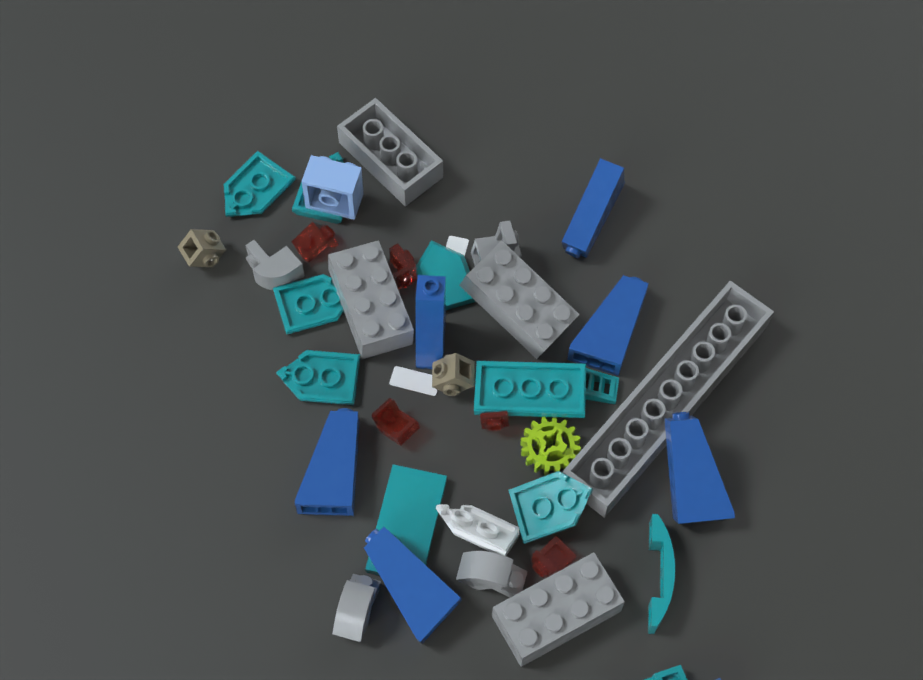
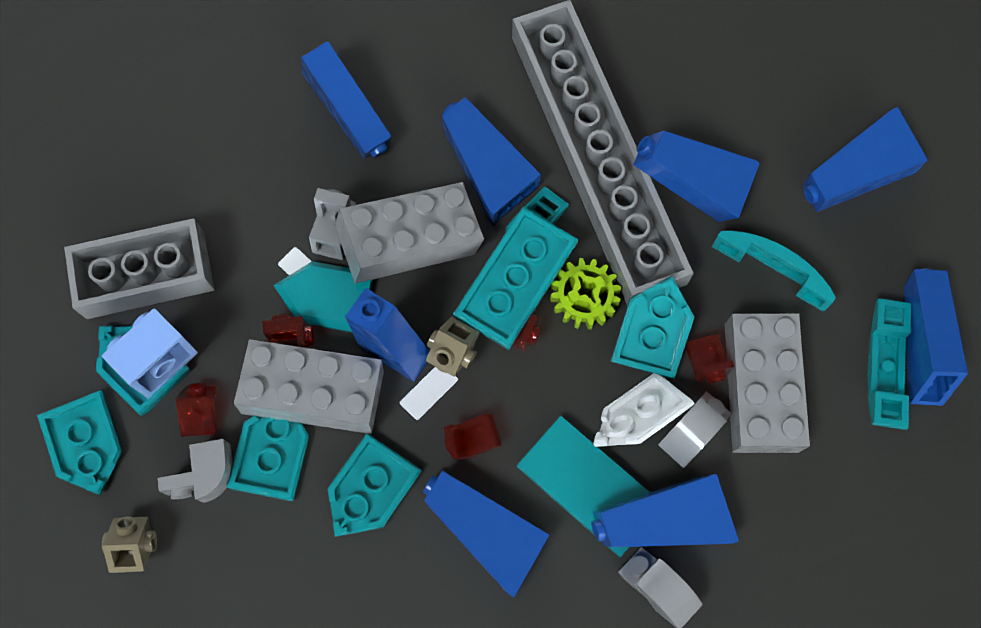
camera: 60 degrees left, 10 degrees up
(791, 603) = (868, 162): none -> blue slope

